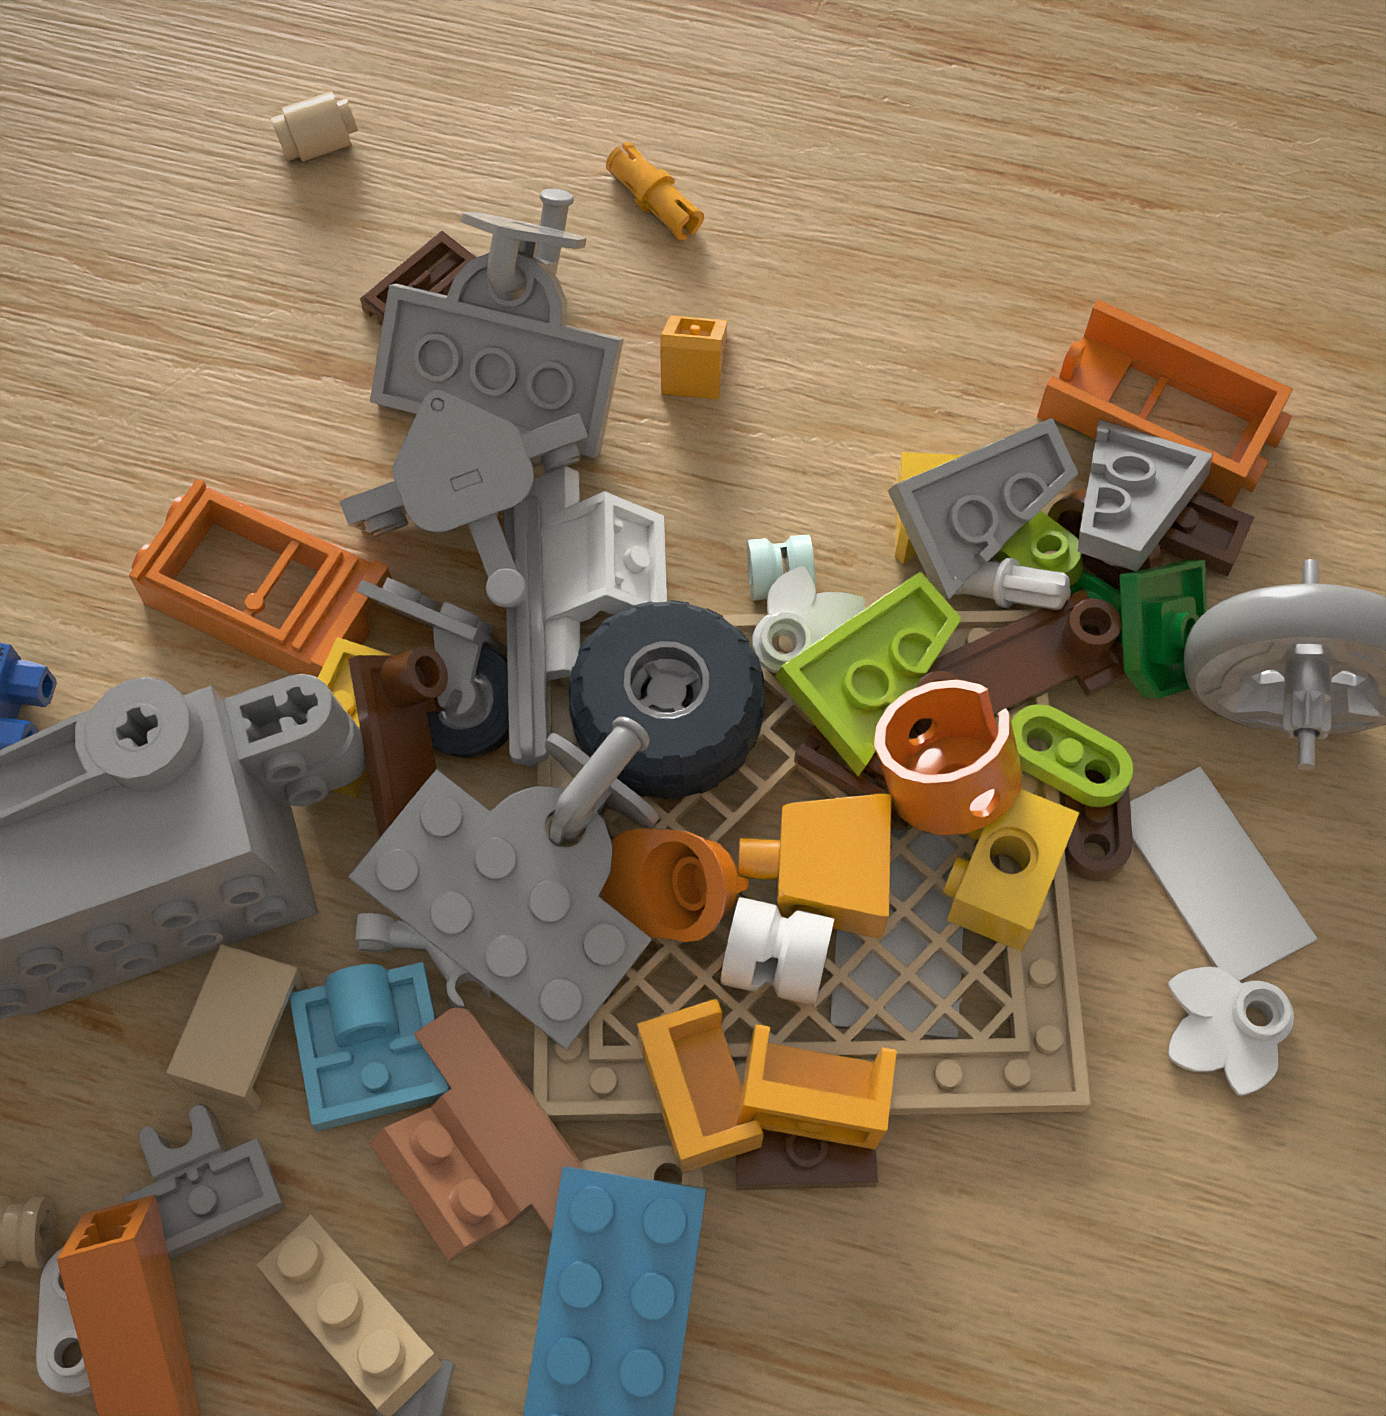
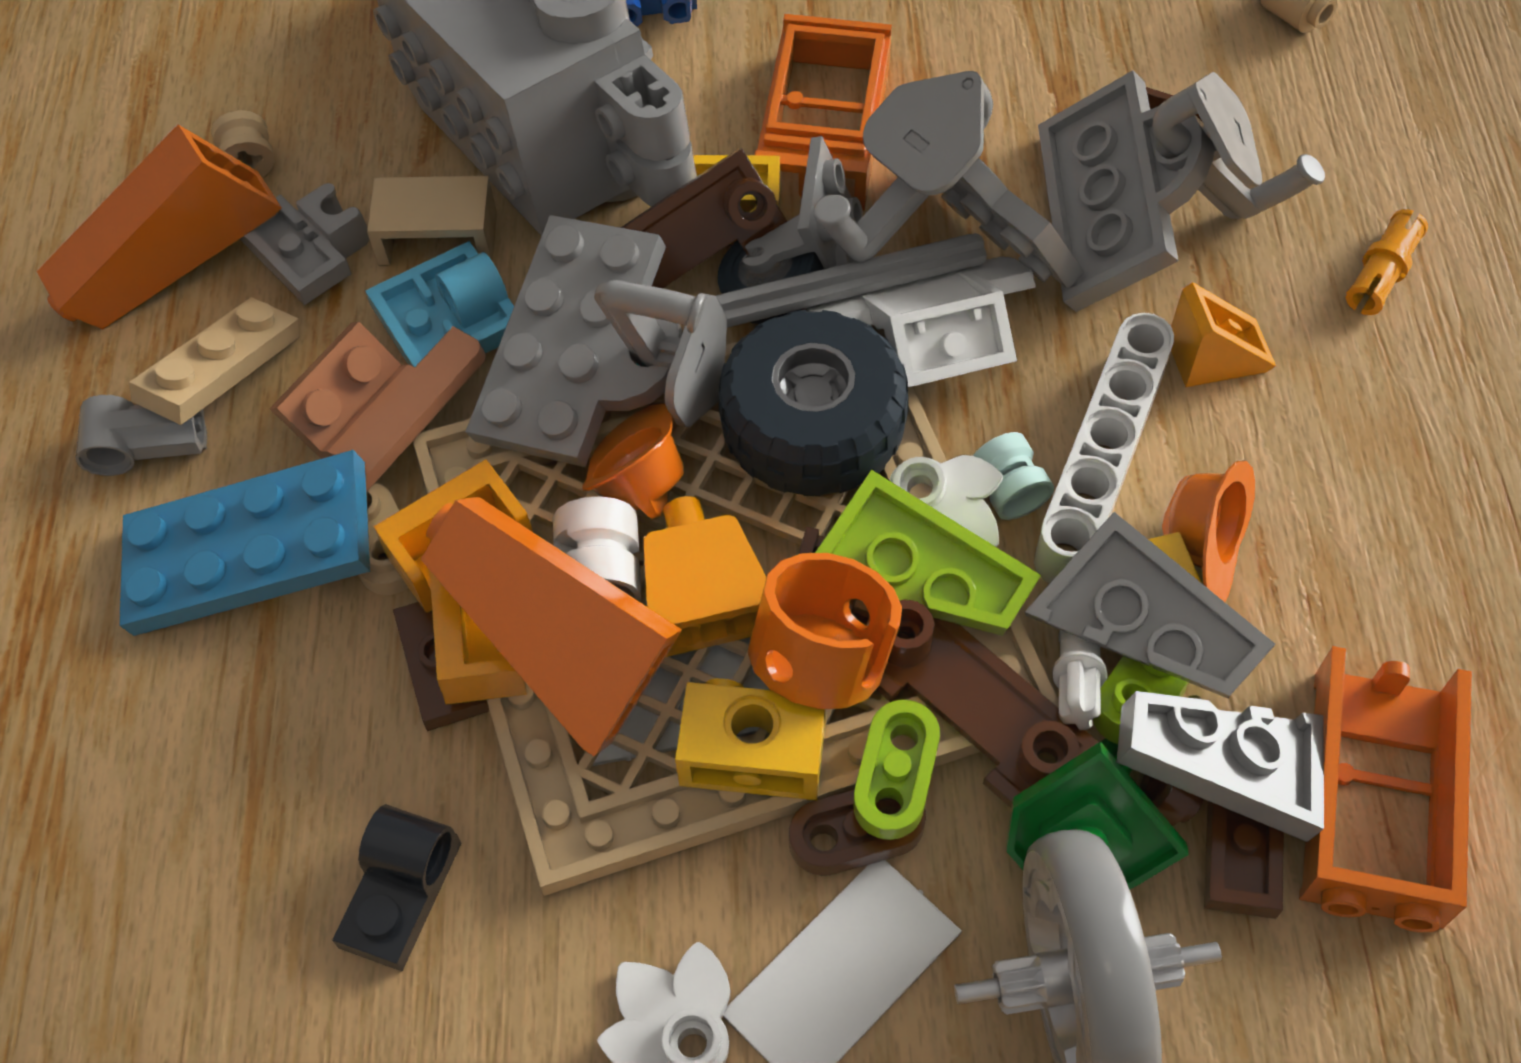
camera: 75 degrees right, 5 degrees down
(786, 505) = (1130, 373): none -> white beam
(862, 995) = (553, 619): none -> orange slope
(880, 430) = (1212, 521): none -> orange piece
(1032, 1236) = (403, 872): none -> black plate

